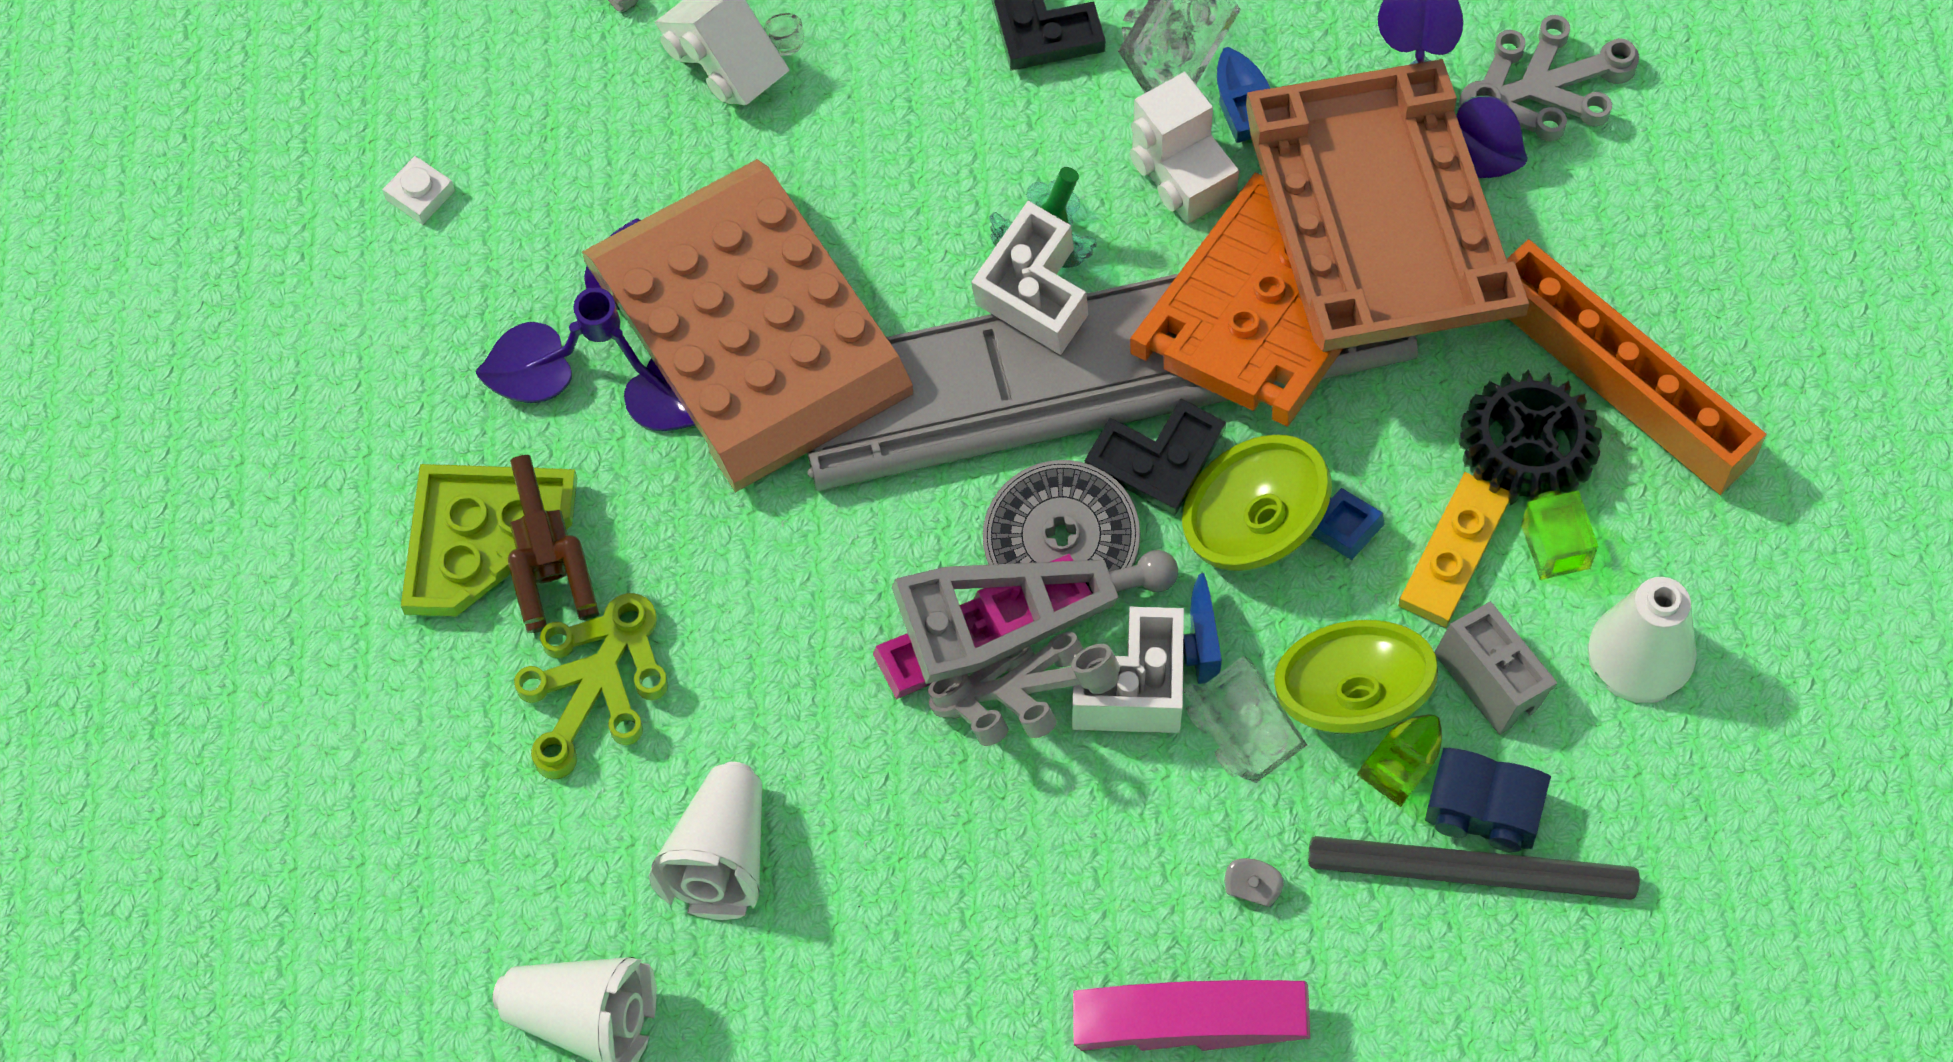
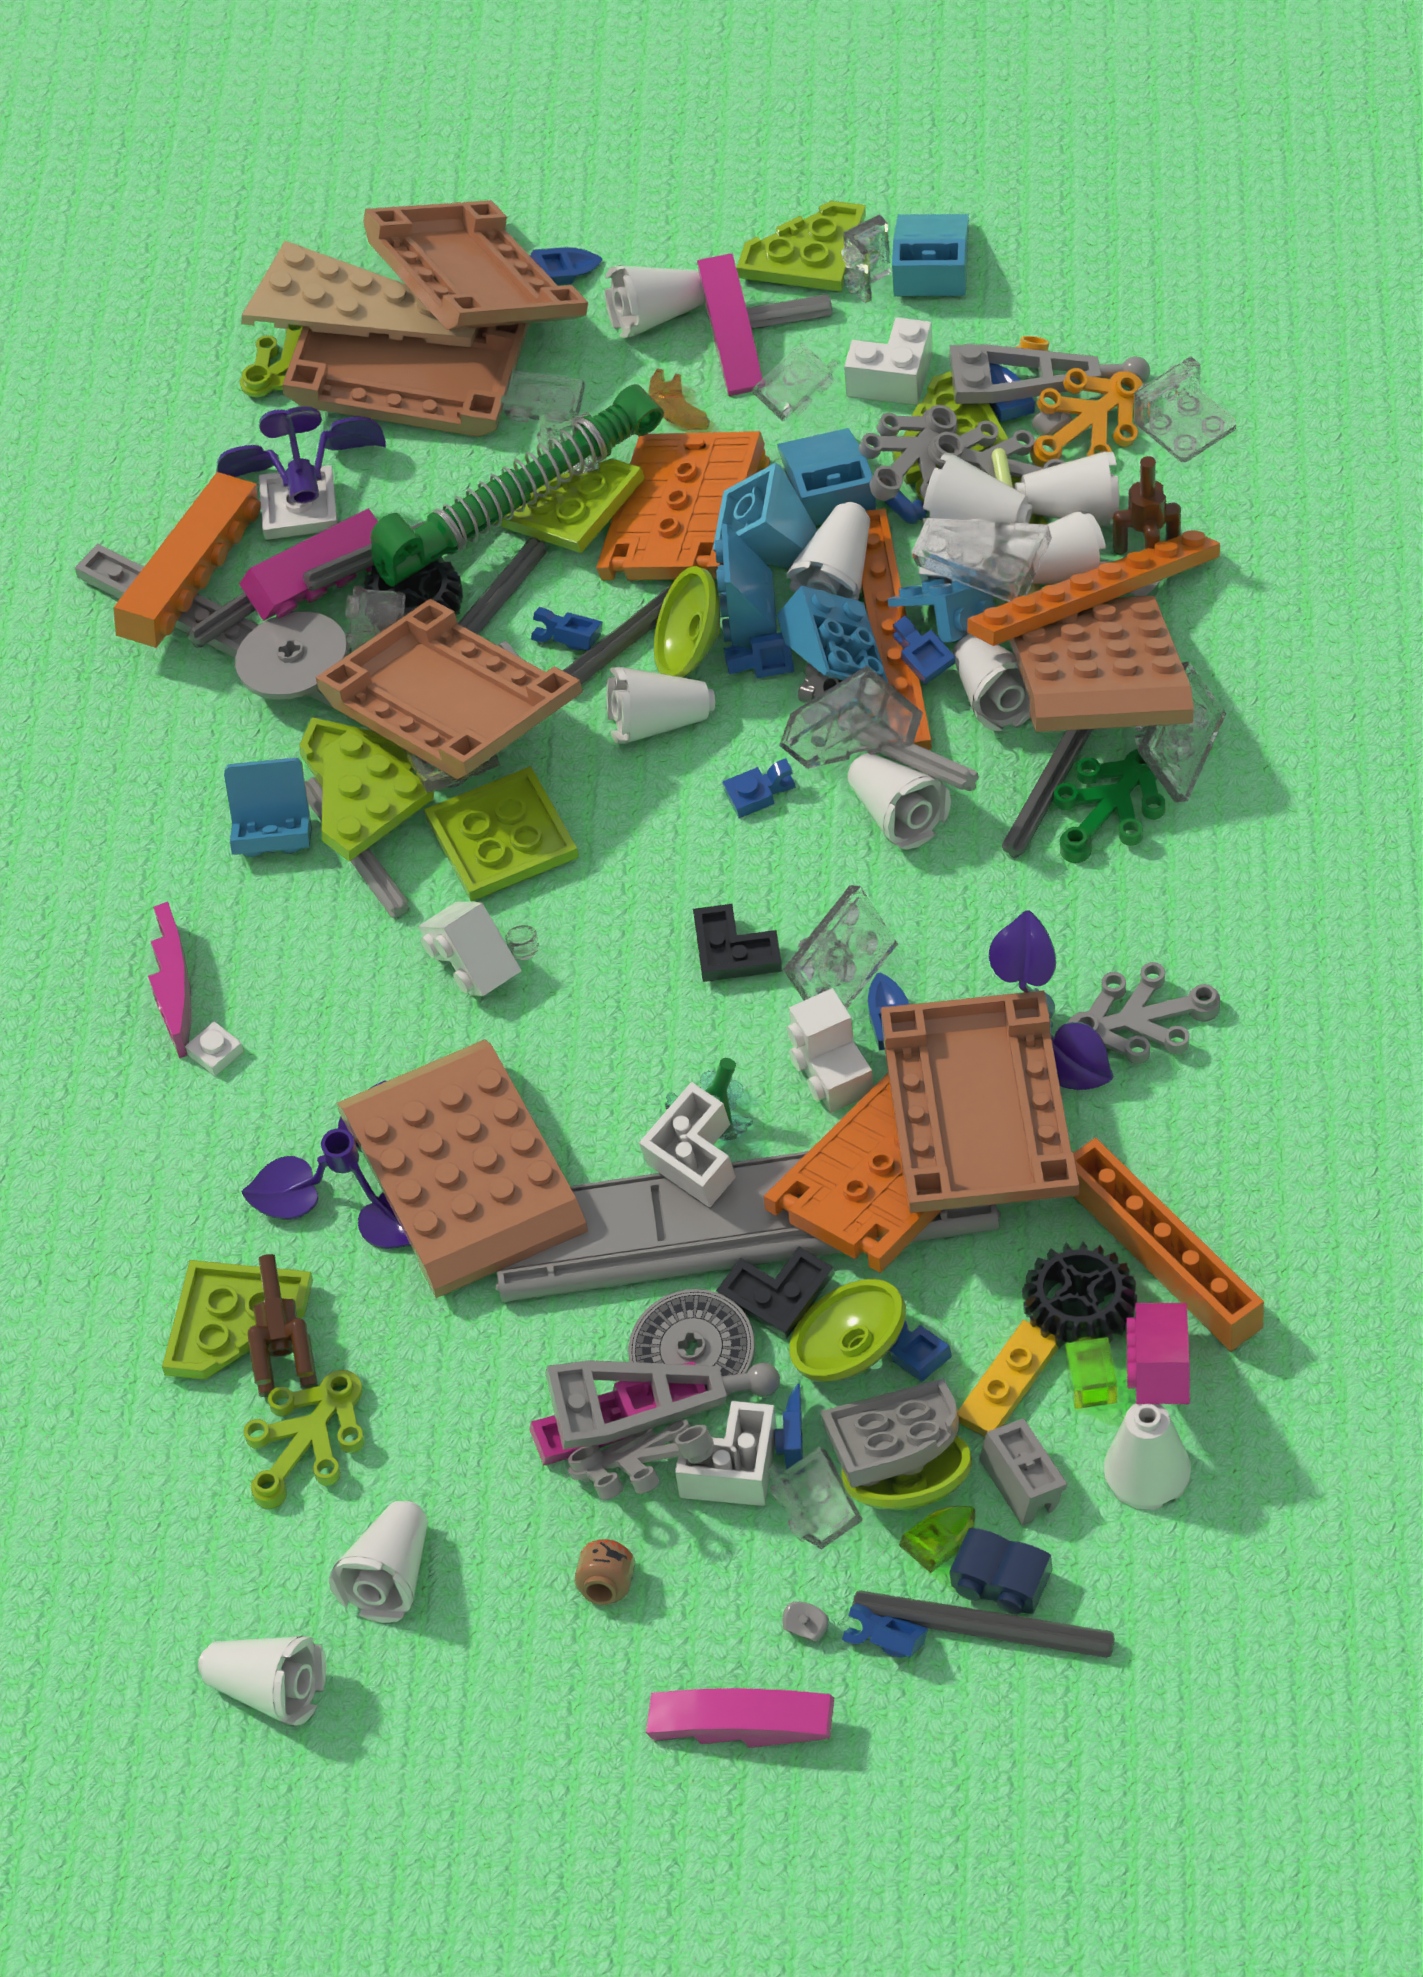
camera: 10 degrees right, 10 degrees down
(356, 111) = (172, 983): none -> dark pink slope
(994, 836) = (604, 1571): none -> medium nougat head
(1330, 630) = (892, 1432): none -> light grey plate
(1365, 891) = (893, 1634): none -> blue plate
(1656, 511) = (1159, 1353): none -> dark pink brick

